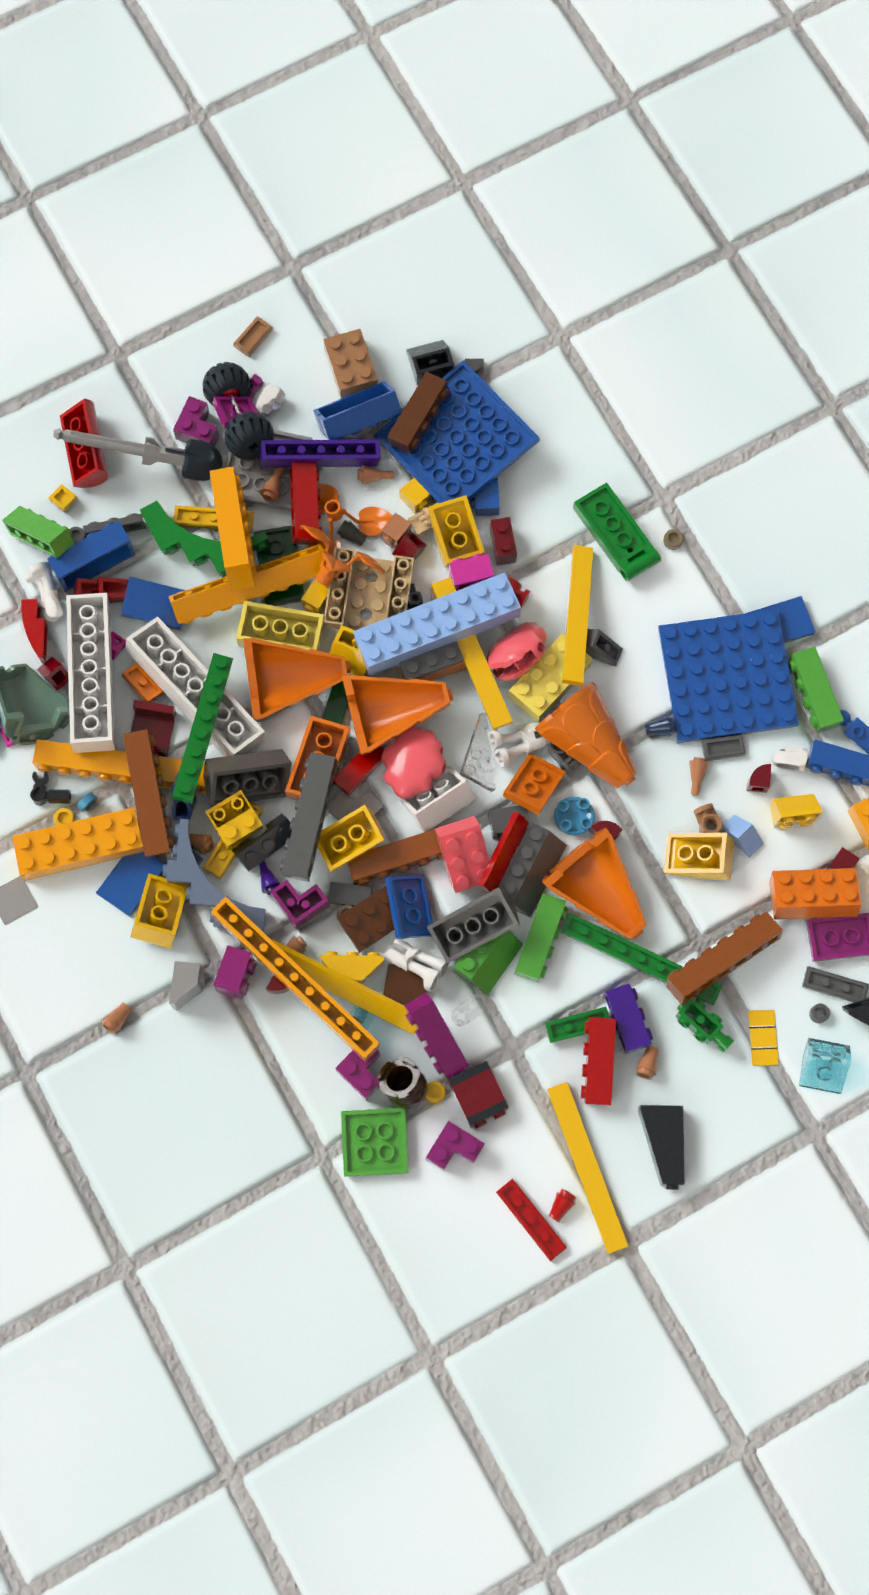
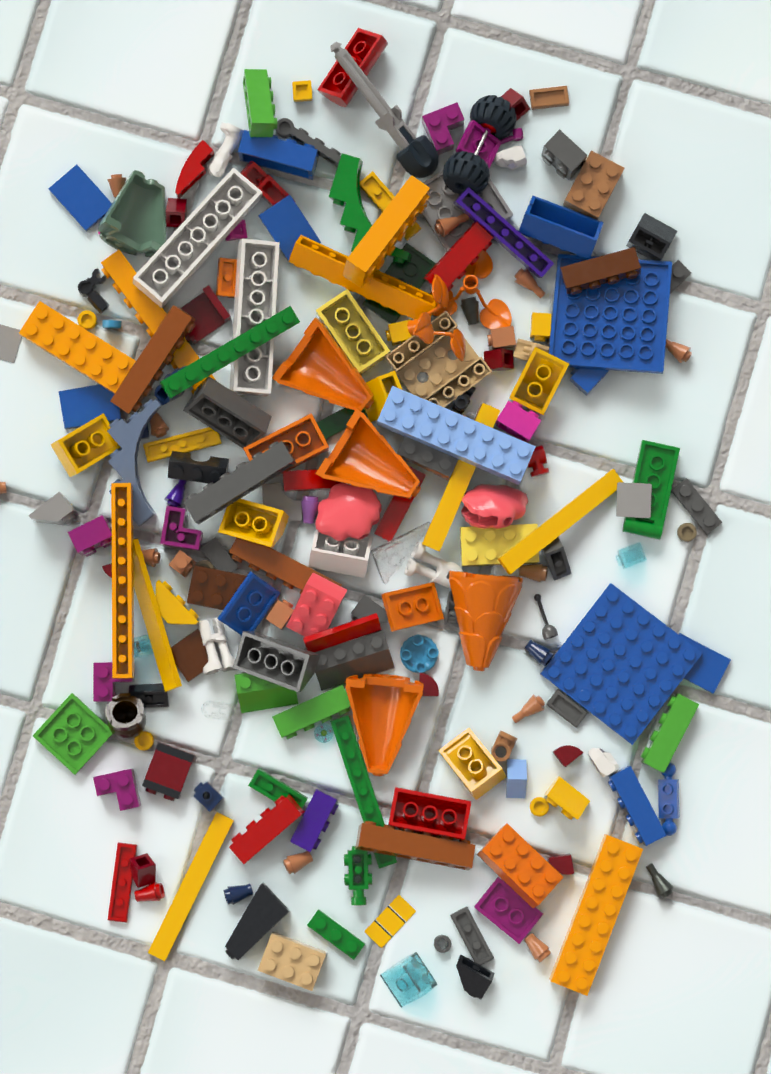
camera: 45 degrees right, 10 degrees up
(233, 356) = (517, 102): none -> dark red brick
(234, 820) = (191, 434): yellow slope -> none
(306, 361) = (563, 155): none -> dark grey brick
(326, 926) = (182, 563): none -> nougat brick
(380, 790) = (309, 508): none -> medium lavender cone
(407, 1046) = (150, 694): none -> black slope
(436, 1035) = (176, 707): magenta brick -> none
(440, 889) = (280, 614): none -> nougat brick
(449, 735) = (396, 512): none -> red tile
(503, 541) = (567, 418): dark red brick -> none
(534, 419) = (679, 351): none -> nougat cone
(536, 1086) = (215, 796): none -> dark blue brick
(538, 1192) = (143, 870): none -> dark red brick
(565, 946) = (323, 733): none -> clear light blue tile
(596, 672) = (534, 572): none -> medium nougat cone
(613, 549) = (633, 500): none -> light grey sticker
(628, 1135) = (237, 893): none -> dark blue cone
(651, 704) = (548, 630): none -> hinge
(652, 592) = (630, 555): none -> clear light blue brick
(661, 514) = (696, 506): none -> dark grey plate
(707, 923) = (429, 813): none -> red brick
(724, 1142) = (292, 961): none -> tan brick
(734, 1089) = (336, 934): none -> green plate
(780, 839) = (539, 806): none -> yellow tile

